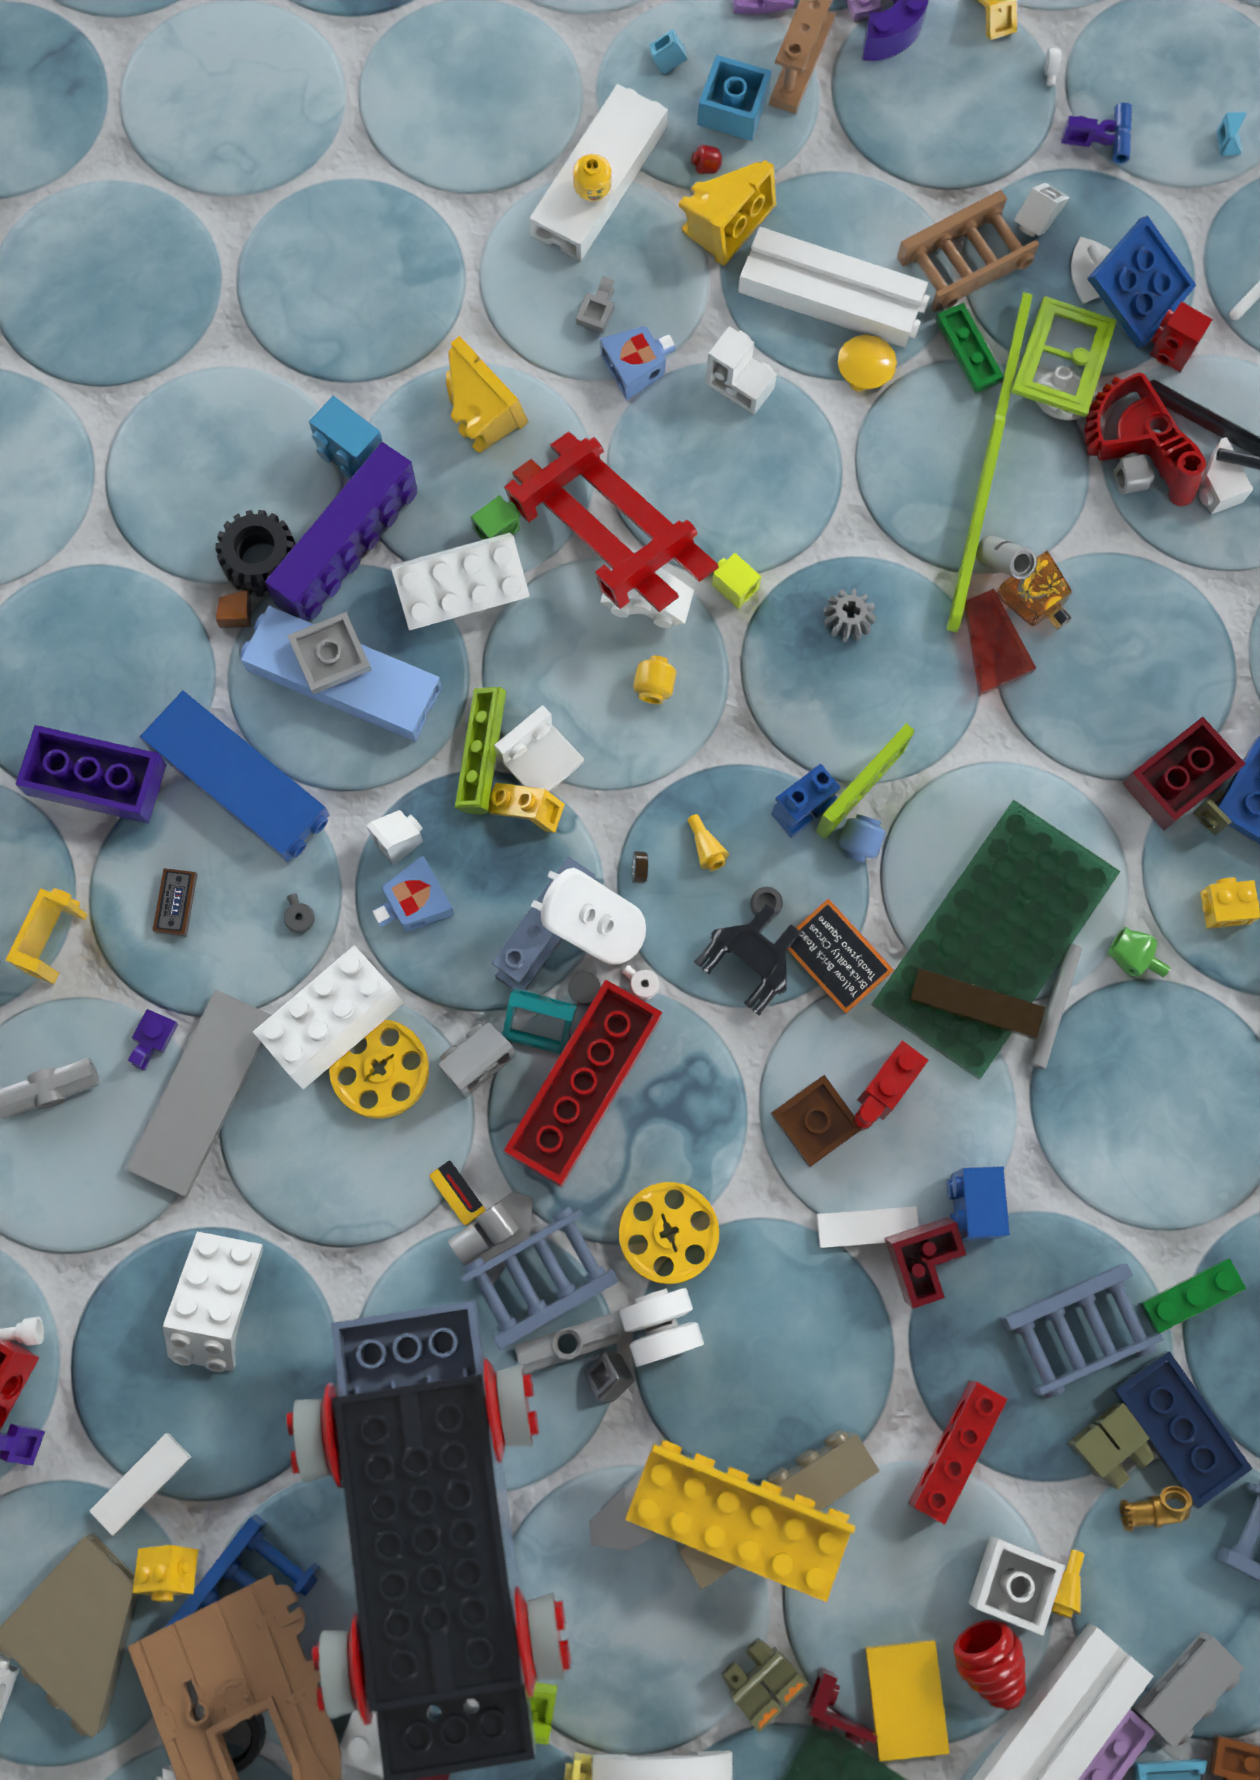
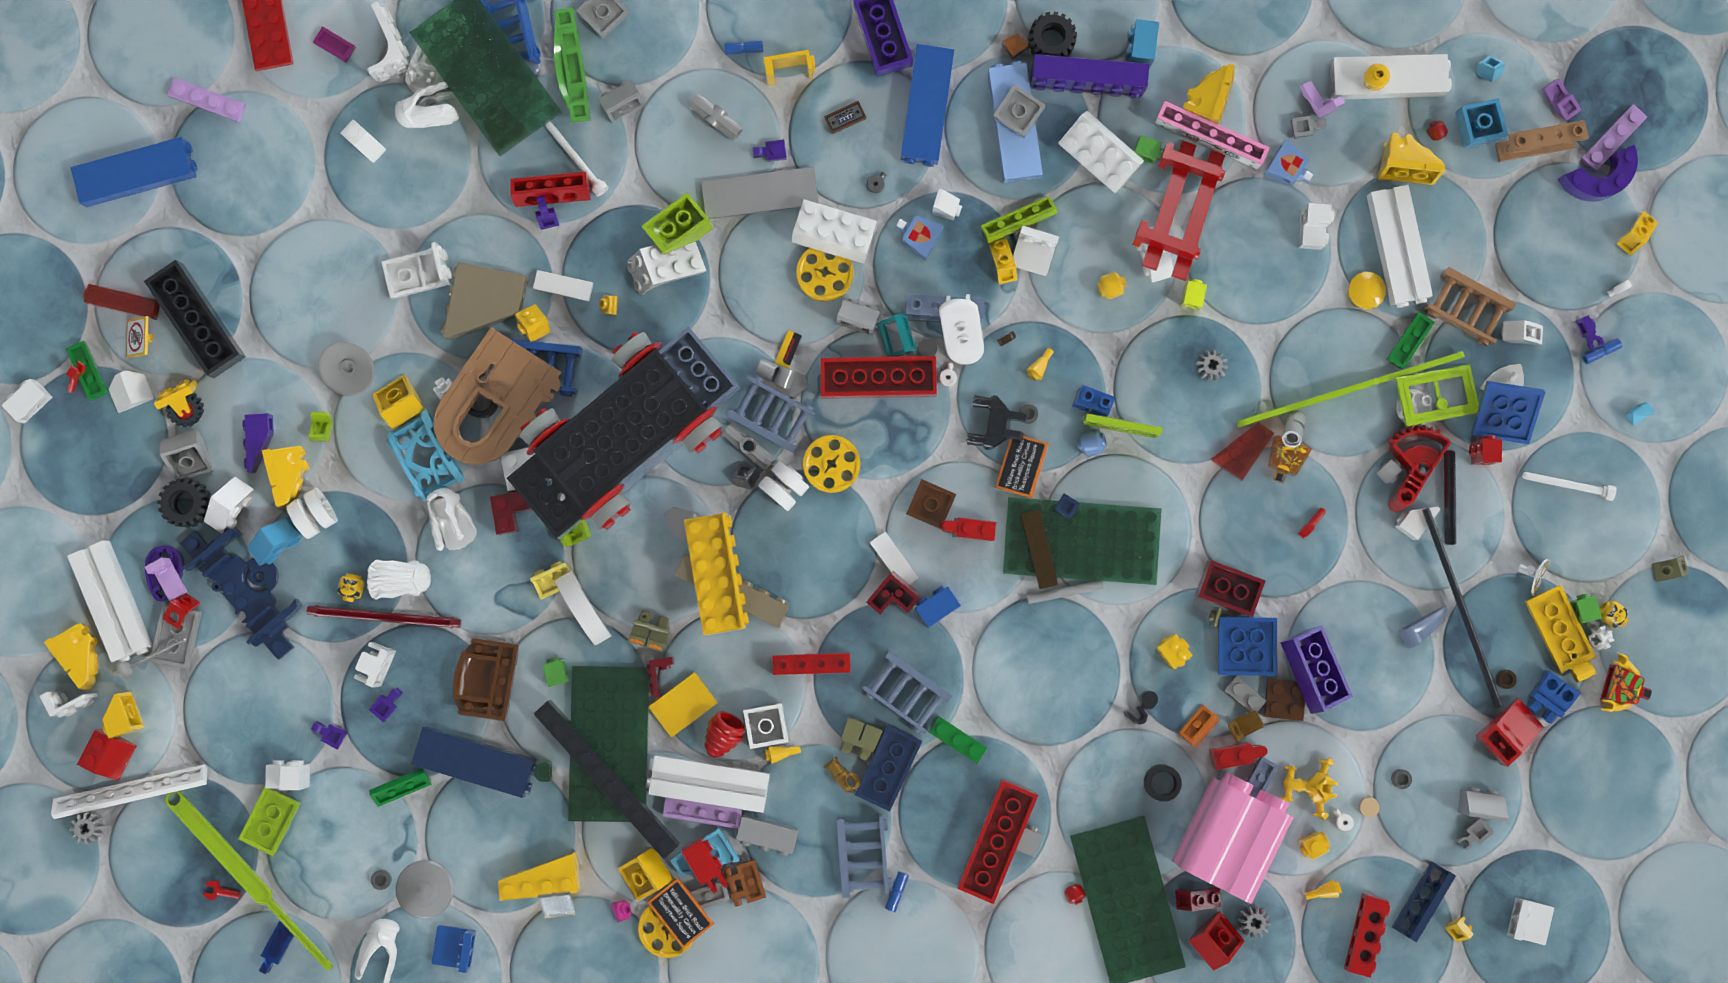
camera: 60 degrees right, 10 degrees up
(166, 1244) = (678, 225): none -> lime slope
(216, 1429) = (608, 305): none -> yellow plate
(531, 428) = (1211, 135): none -> bright pink brick
(580, 278) = (1318, 105): none -> lavender bracket
(935, 927) = (1066, 506): none -> dark blue tile
(1136, 953) = (1117, 617): bright green piece -> none
(1154, 621) = (1310, 526): none -> red bar

